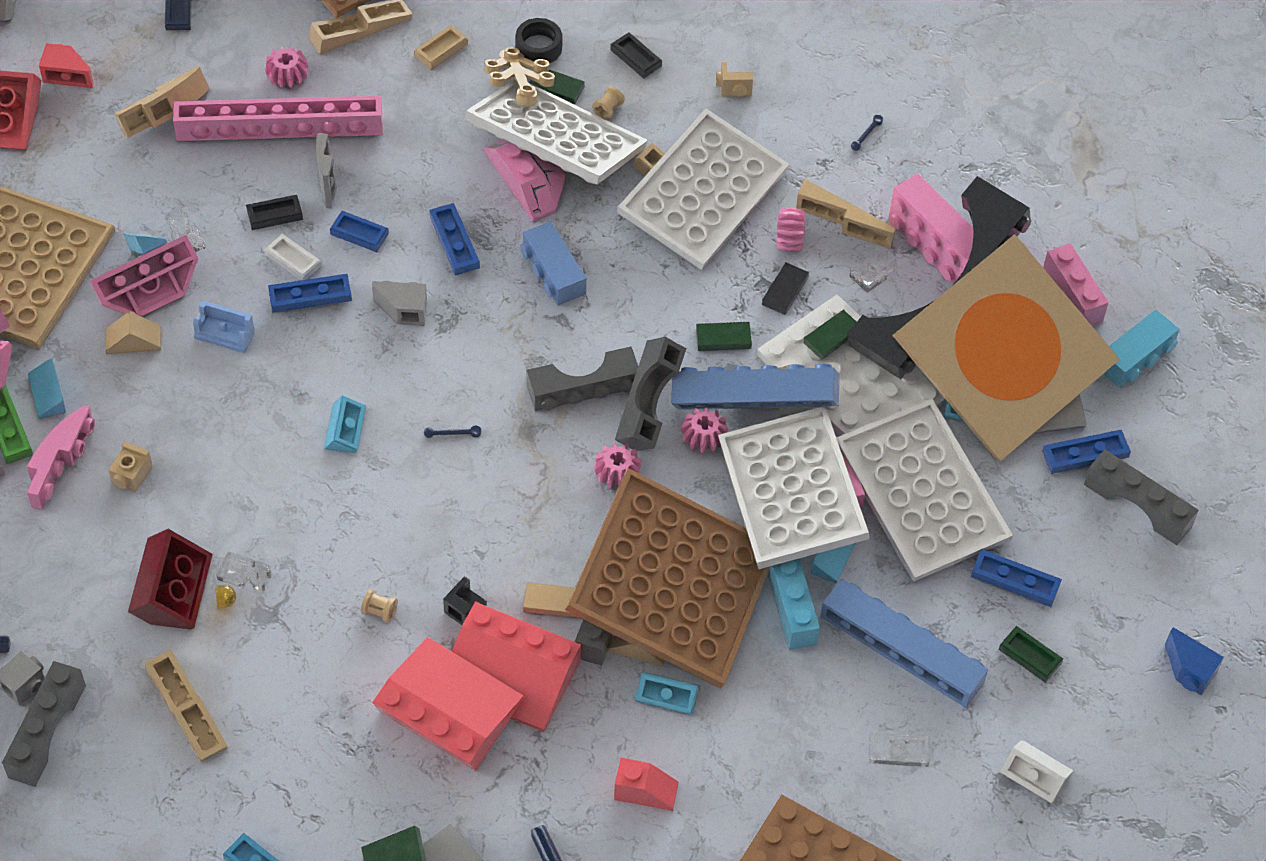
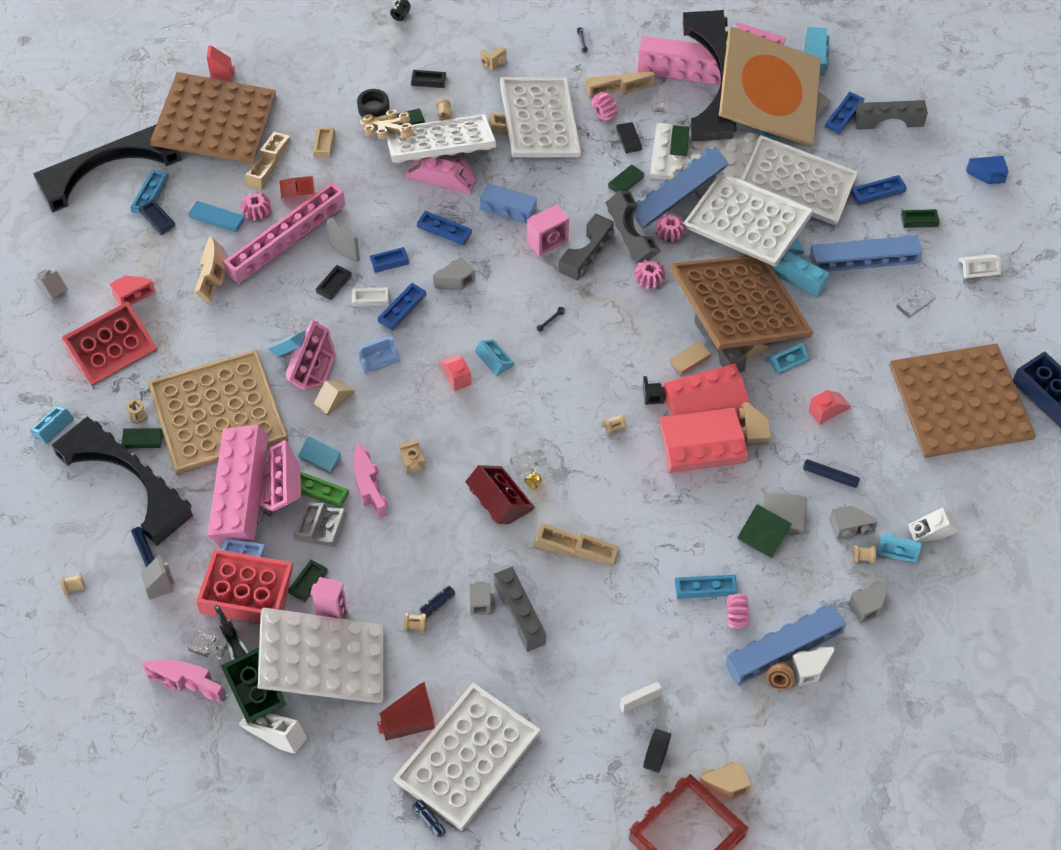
camera: 40 degrees left, 0 degrees up
(239, 50) = (216, 216): none -> dark azure tile
(281, 410) = (456, 371): none -> coral slope
(349, 78) = (297, 187): none -> clear red slope
(526, 735) = (755, 425): none -> tan slope
(554, 325) = (547, 230): none -> bright pink brick

